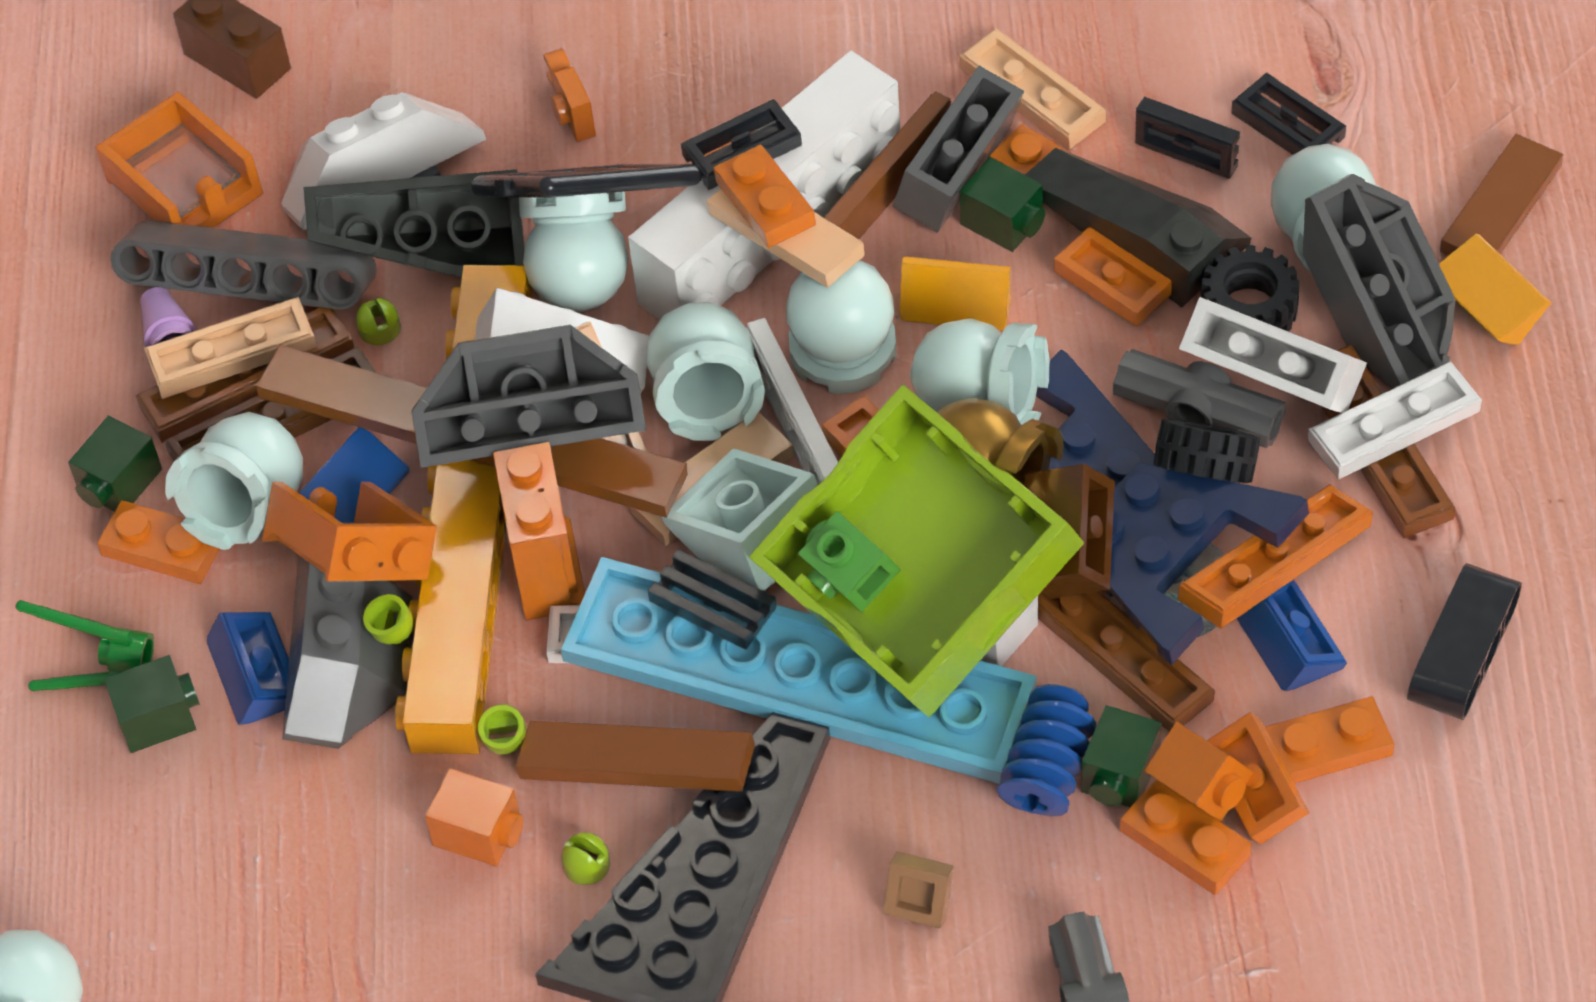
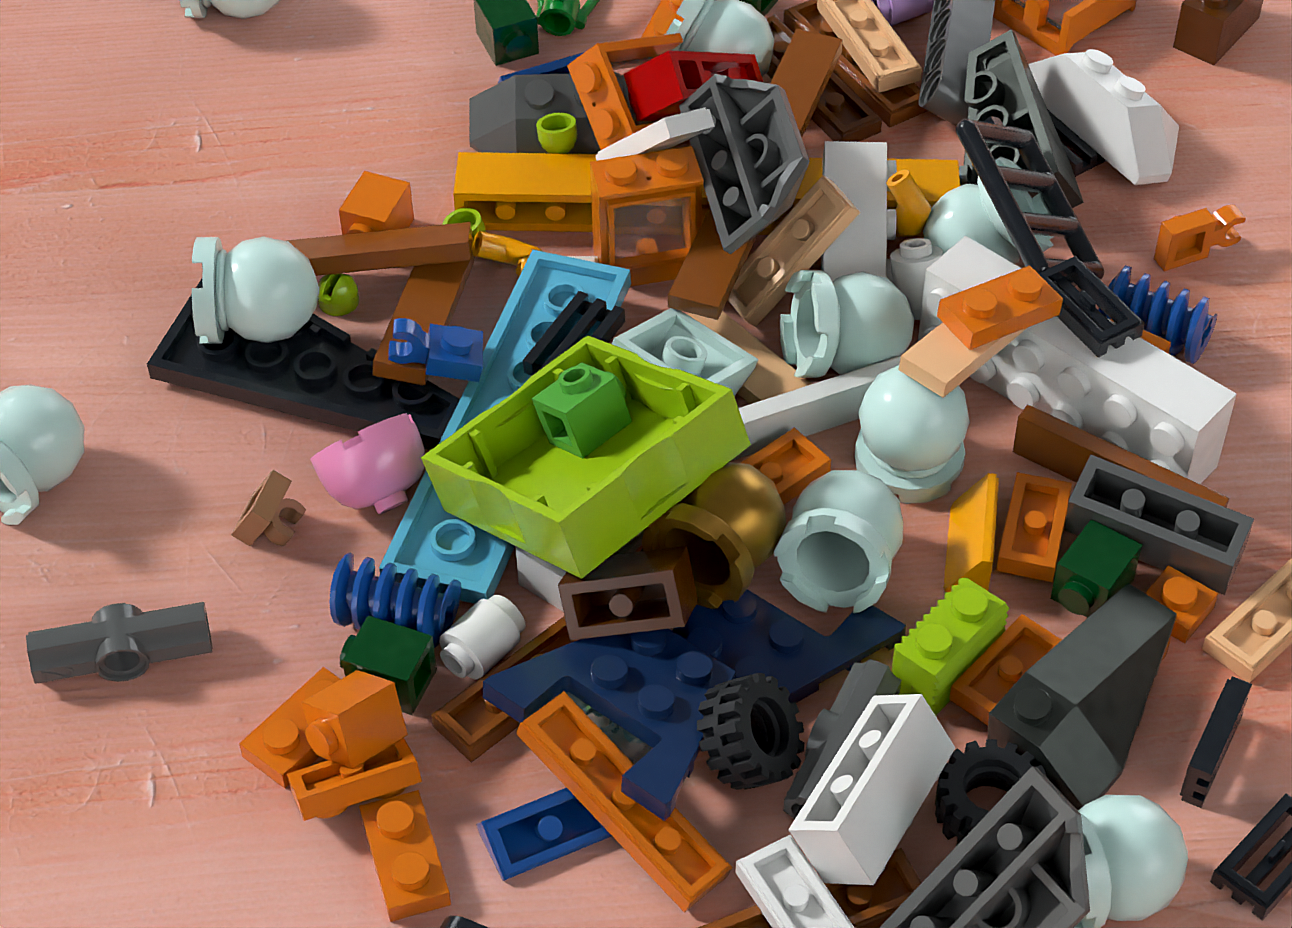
camera: 85 degrees right, 5 degrees down
(361, 474) = (670, 78): none -> red slope
(367, 326) = (915, 133): lime hinge -> none
(479, 487) = (661, 134): none -> white tile
(537, 686) = (502, 249): none -> light orange arm
(549, 811) = (387, 248): none -> dark orange tile
(552, 289) = (912, 205): none -> light orange arm
(626, 304) = (909, 269): none -> white brick
(643, 897) = (256, 289): none -> light aqua tile
(683, 115) = (1167, 317): none -> blue piece
(725, 710) = (444, 349): none -> blue plate
(866, 780) = (373, 465): none -> bright pink cylinder
(940, 240) = (1034, 527): none -> orange plate
(1088, 675) = (481, 637): none -> white brick
(1093, 312) = (948, 642): none -> lime brick

